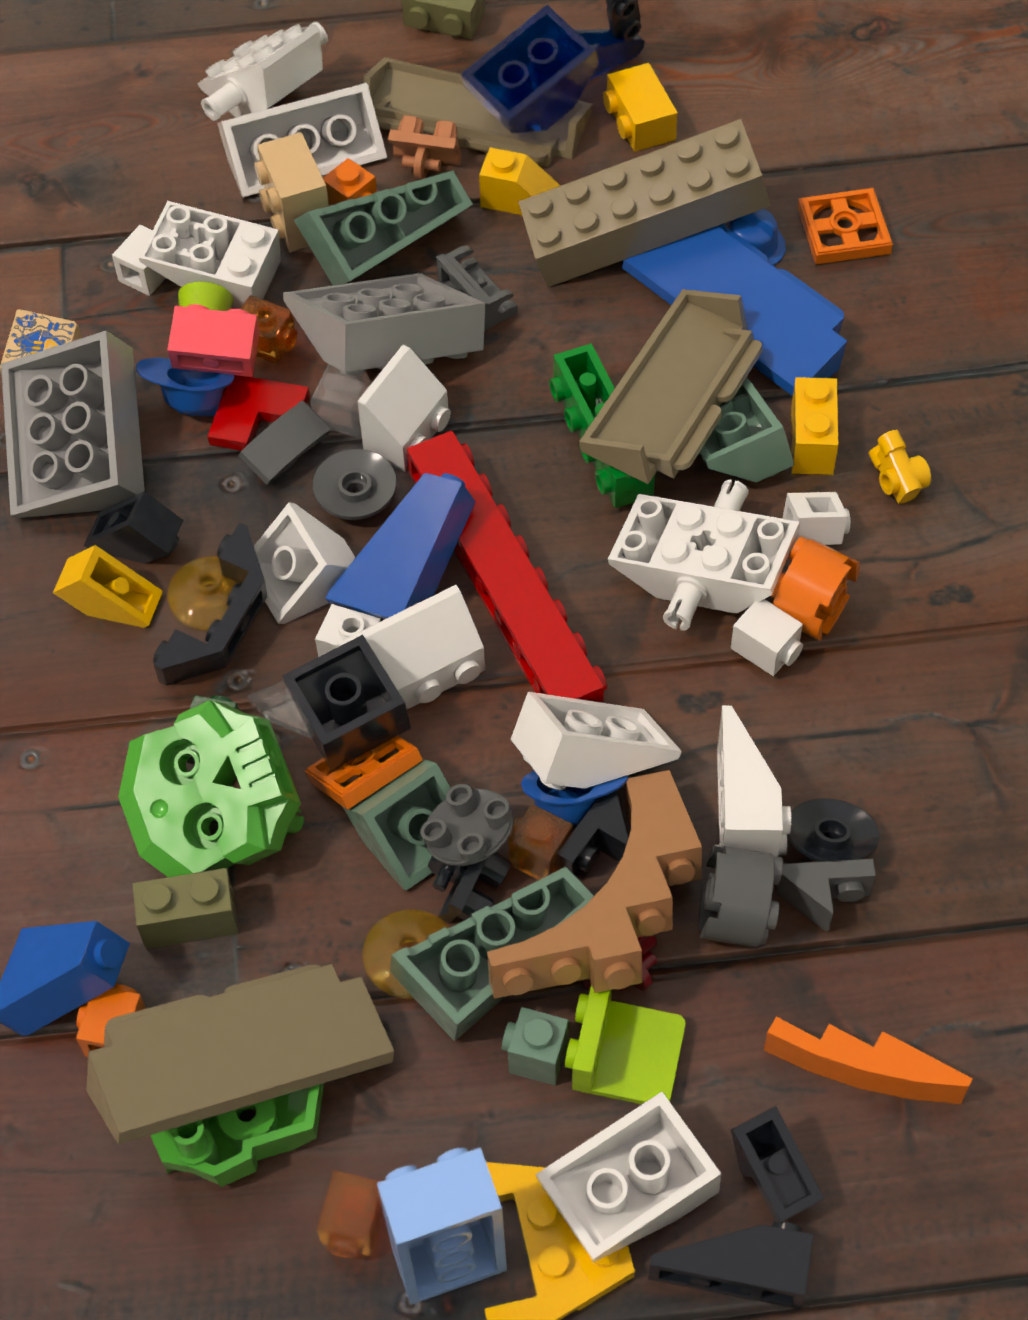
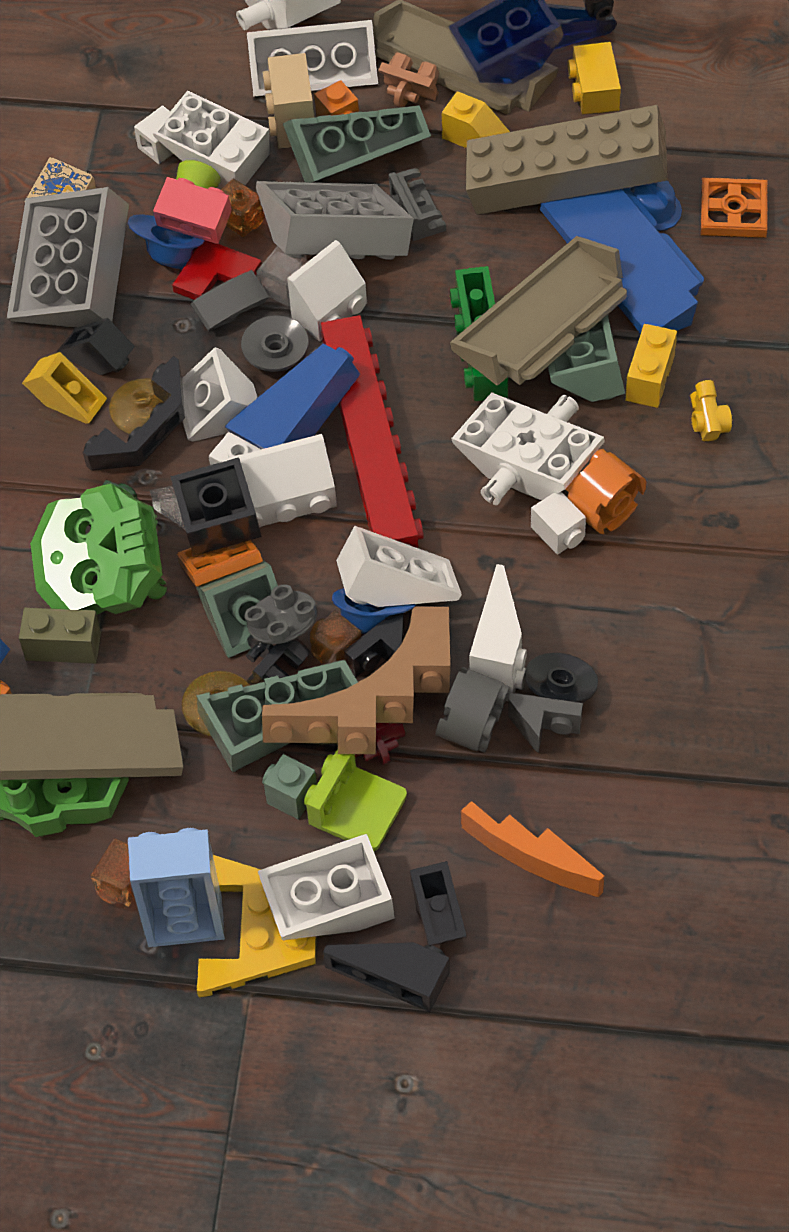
camera: 15 degrees right, 0 degrees up
(819, 516) = (628, 438): white brick -> none

